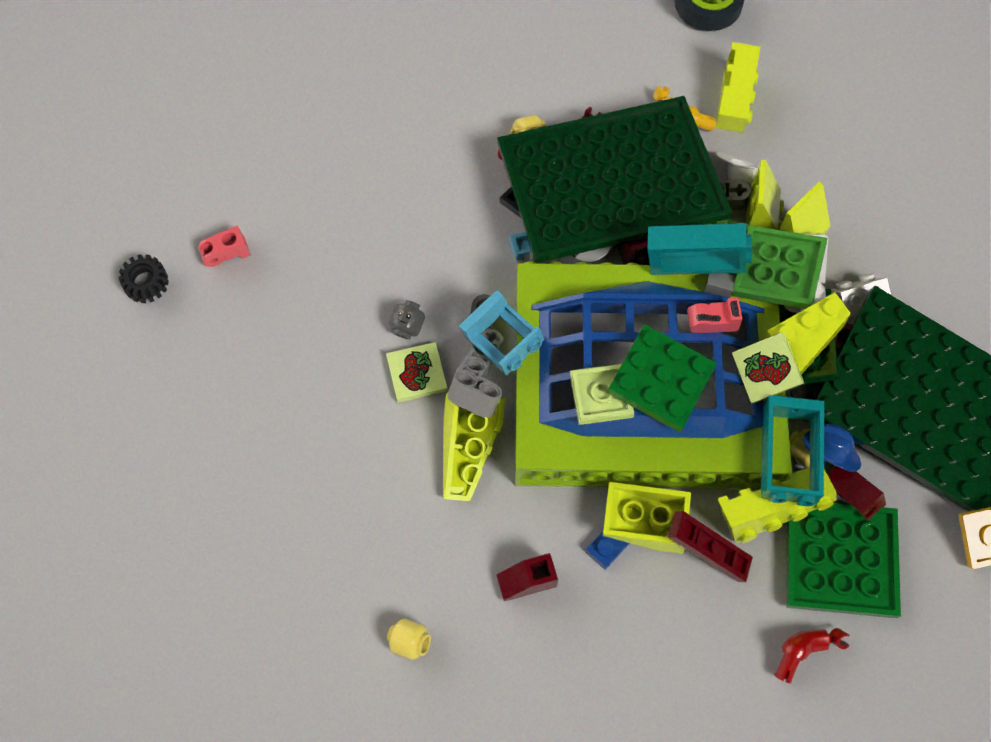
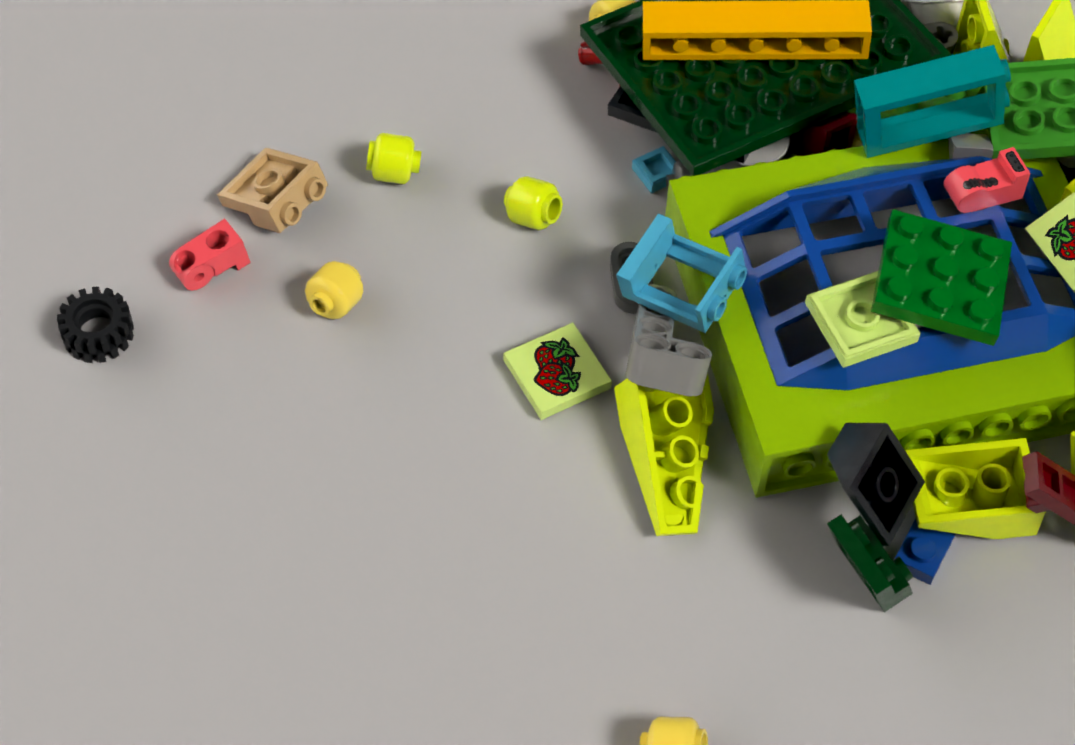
camera: 15 degrees left, 10 degrees down
(276, 209) = (275, 189): none -> tan plate
(293, 287) = (334, 290): none -> light yellow head
(356, 203) = (393, 158): none -> neon yellow head
(406, 320) = (520, 300): dark grey head -> none
(435, 253) = (533, 203): none -> neon yellow head
(528, 577) = (826, 614): dark red slope -> none
(565, 549) = (881, 575): none -> dark green plate
(578, 501) = (876, 476): none -> black slope
(605, 168) = (756, 30): none -> yellow brick

